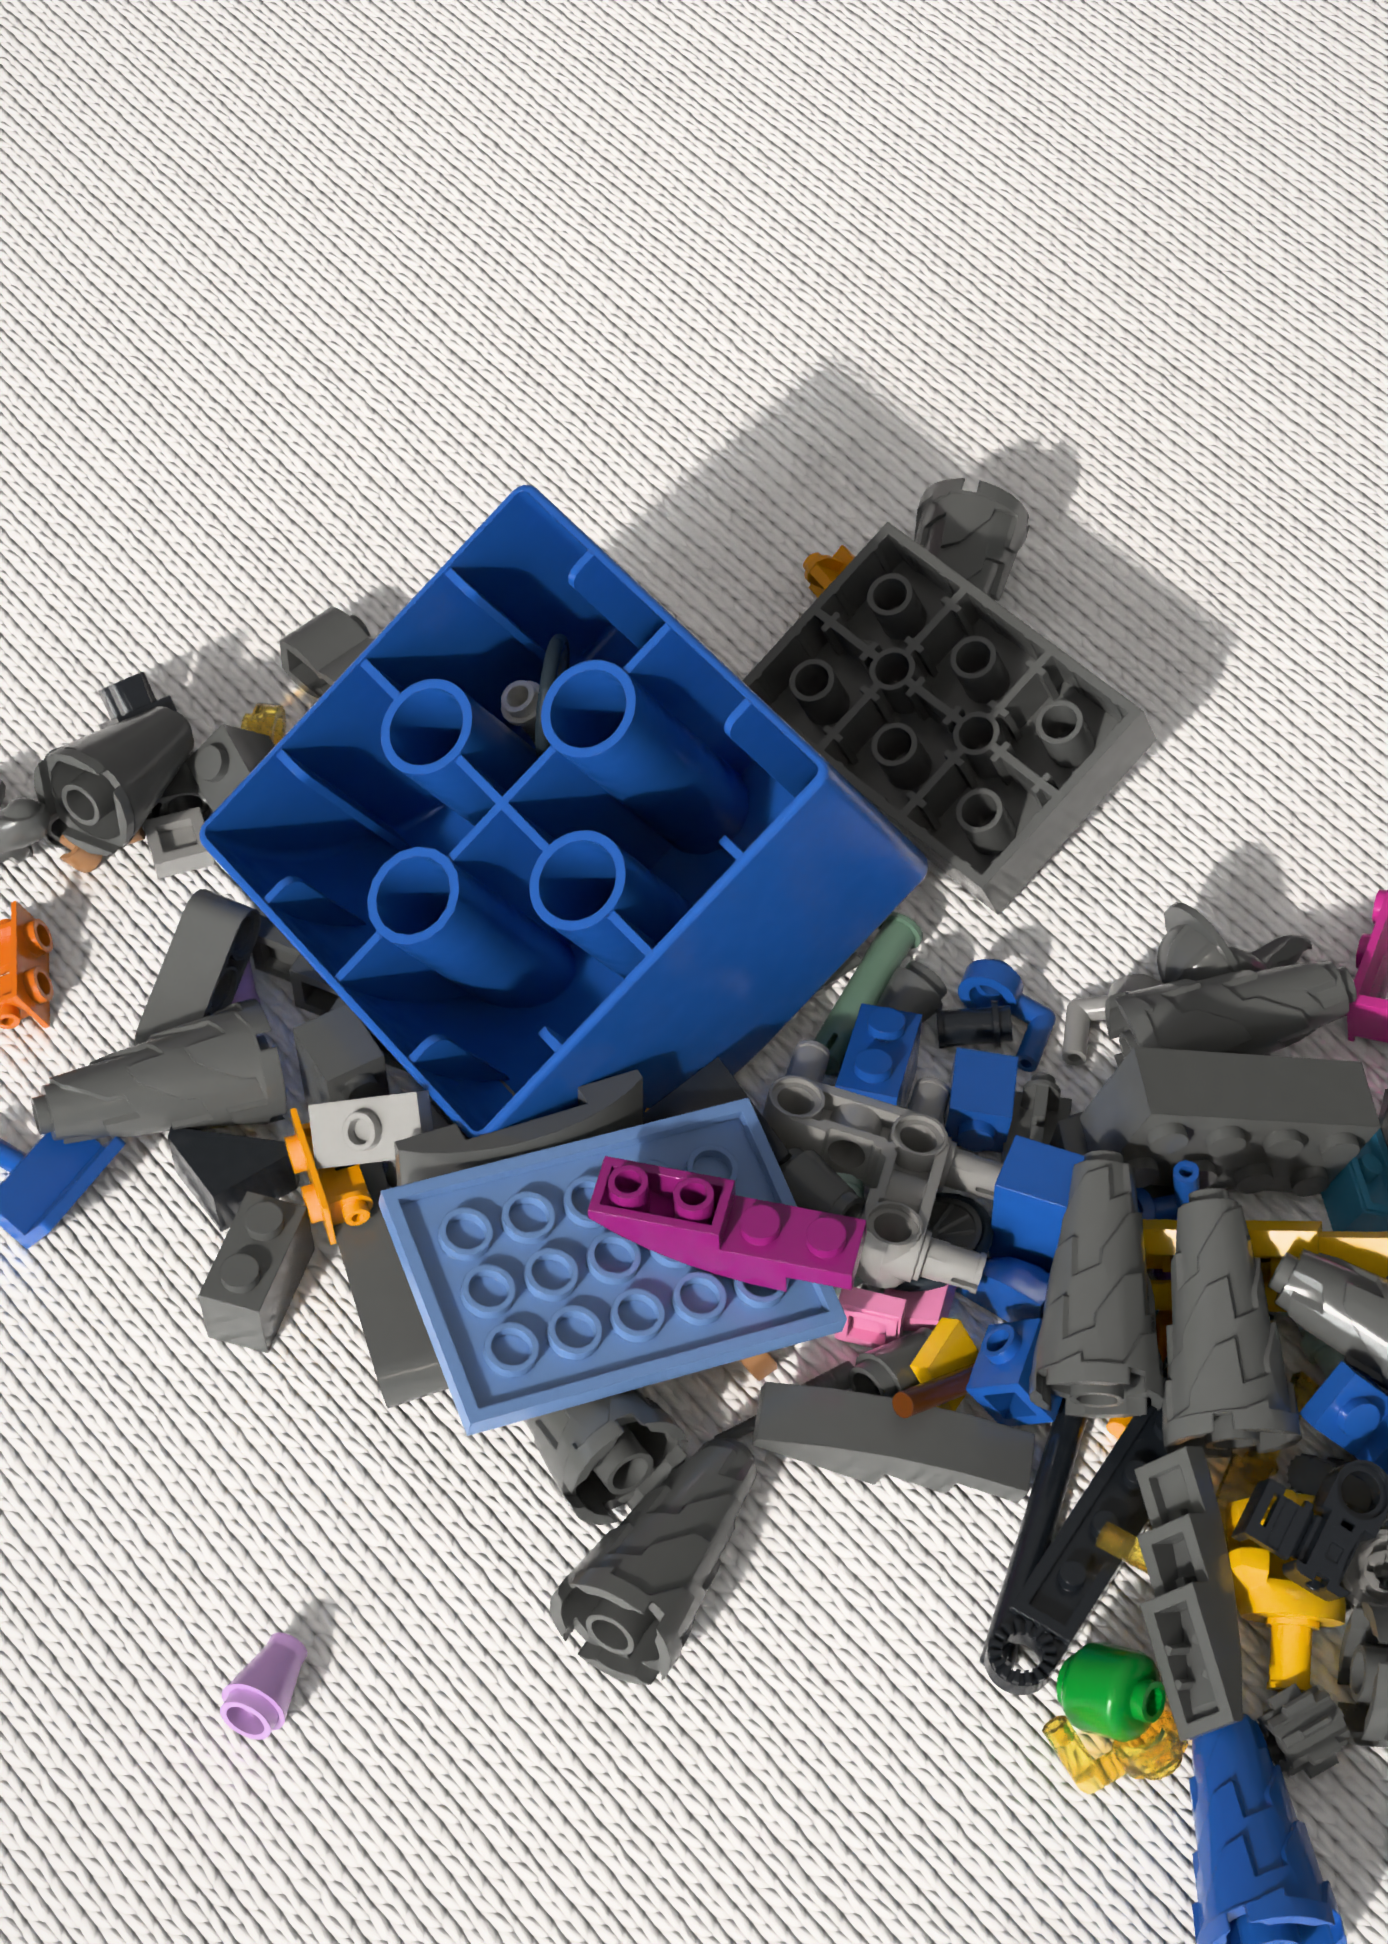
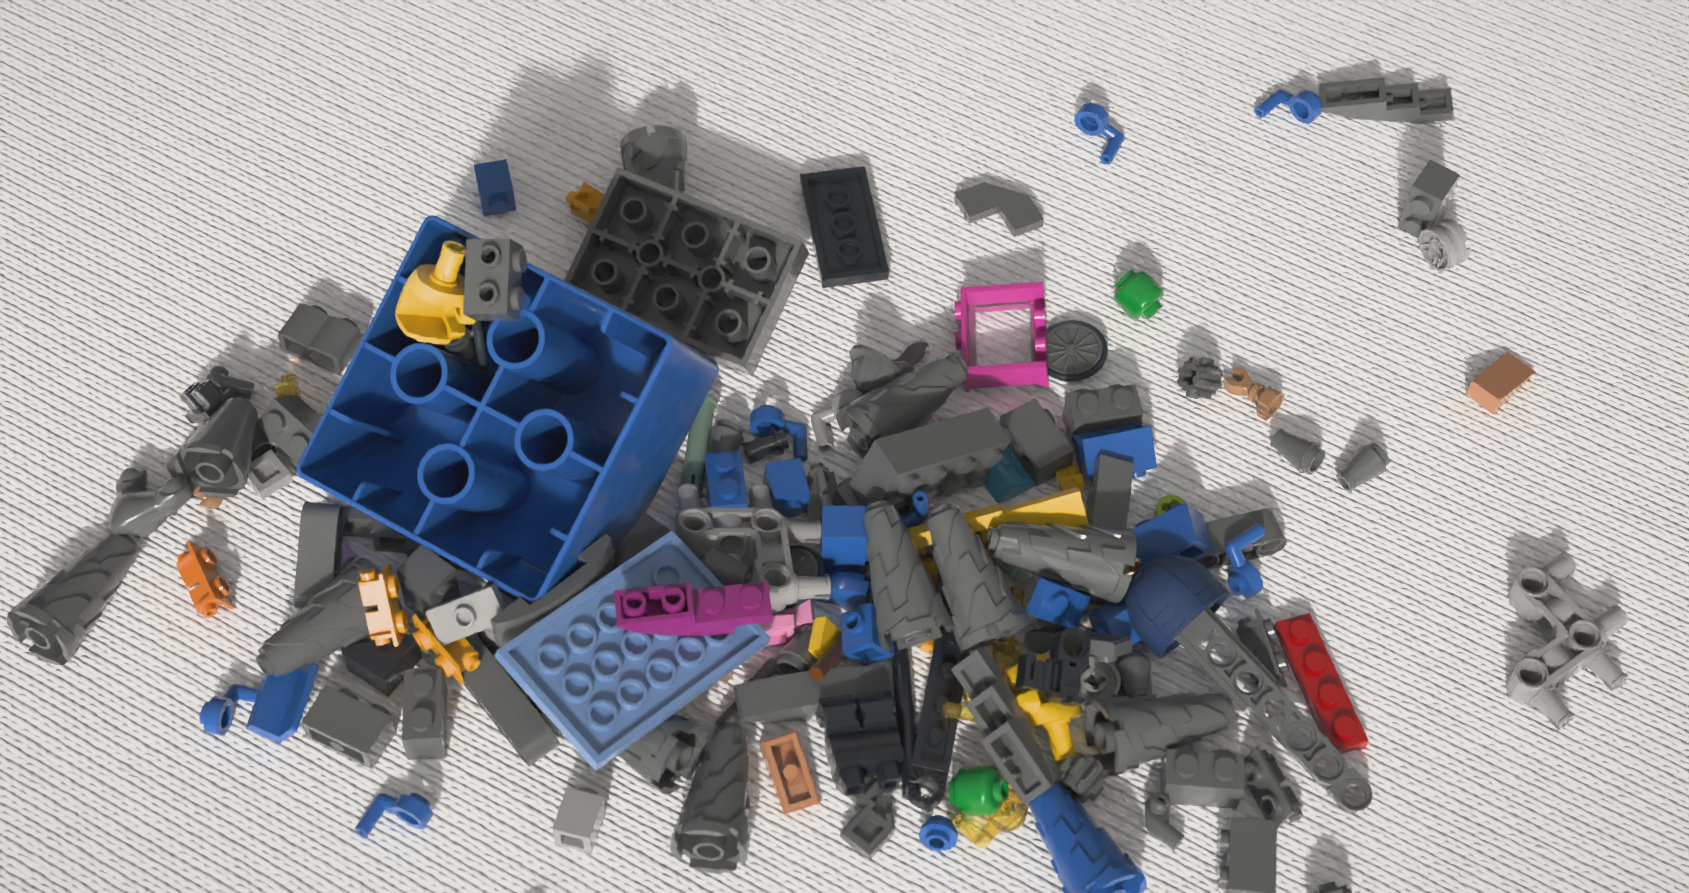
camera: 25 degrees left, 5 degrees up
(136, 1253) = (349, 726): none -> dark grey brick
(173, 1410) = (410, 809): none -> blue plate
(188, 702) = (220, 378): none -> dark grey arm
(253, 1107) = (388, 619): none -> light orange hinge
(429, 1515) = (579, 819): none -> light grey brick
(491, 617) = (434, 299): none -> yellow piece
(580, 602) = (494, 280): none -> dark grey brick
(702, 519) = (495, 187): none -> blue brick
(805, 1556) = (789, 772): none -> nougat slope
(918, 1684) = (873, 823): none -> dark grey tile
(938, 1564) = (864, 753): none -> black hips
(1015, 1740) = (938, 833): none -> blue plate
(1240, 725) = (843, 227): none -> black plate

